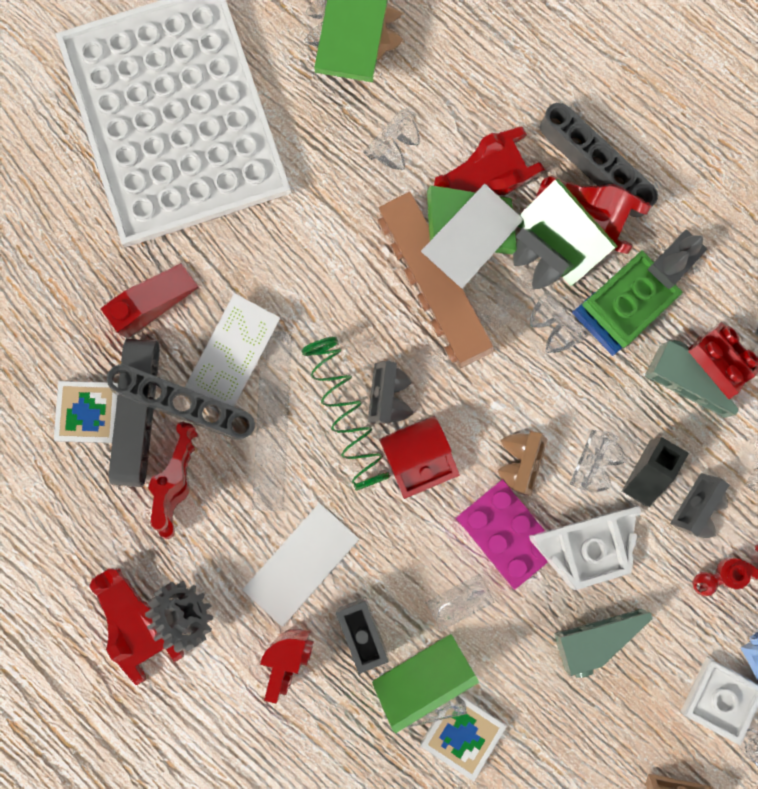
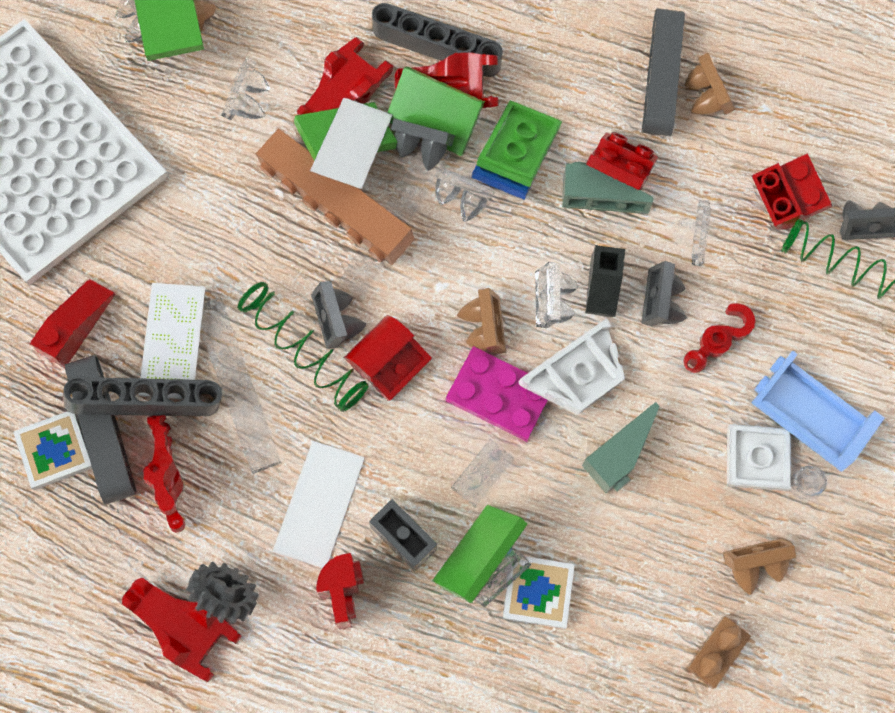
camera: 25 degrees left, 10 degrees down
(678, 258) = (544, 94): dark grey tile -> none

